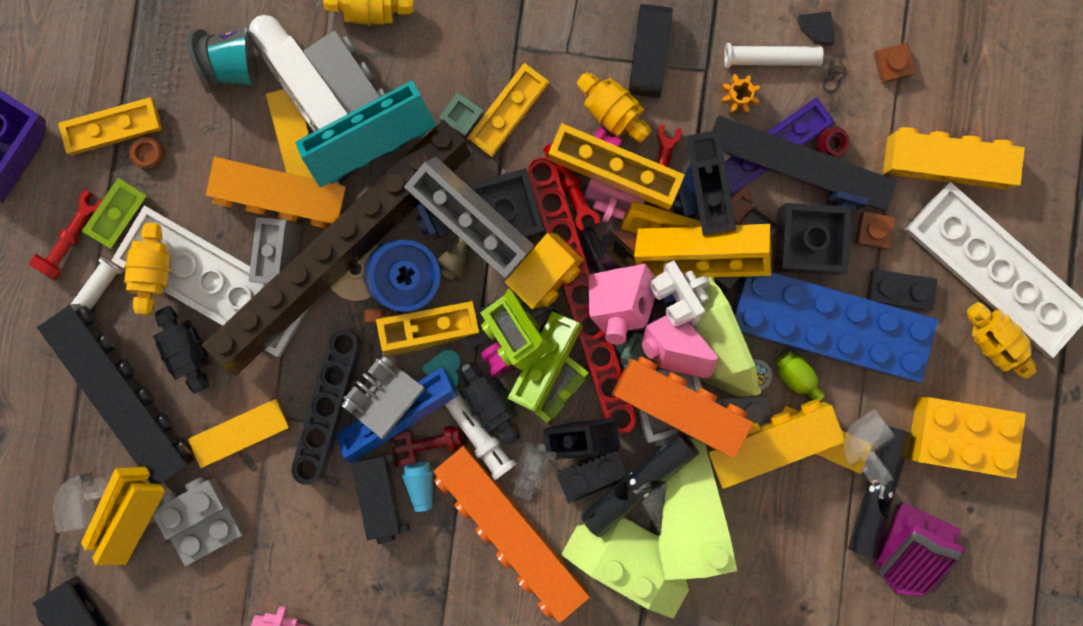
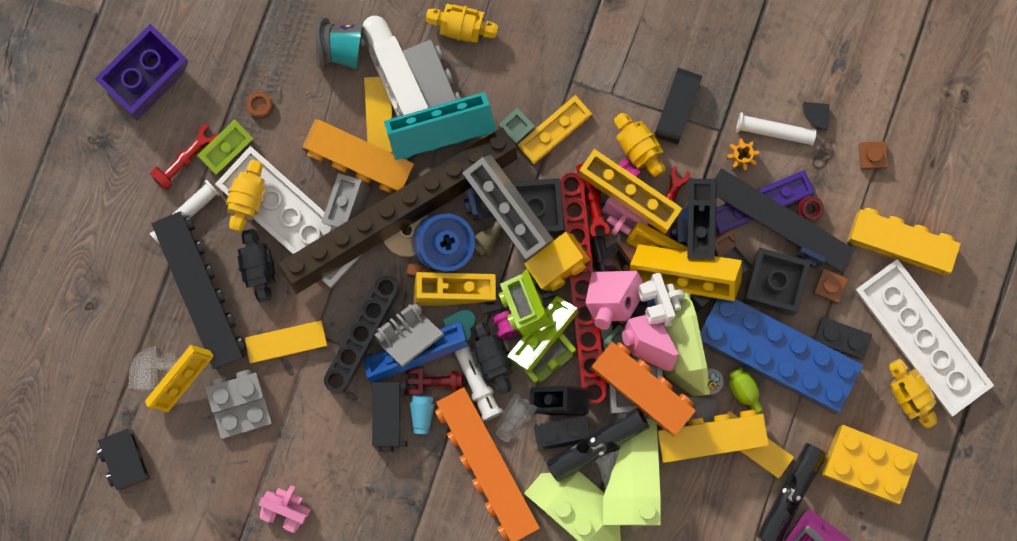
camera: 15 degrees right, 5 degrees down
(110, 126) = (236, 78): yellow plate -> none
(128, 524) = (186, 393): yellow tile -> none
(862, 442) = (785, 449): clear brick -> none

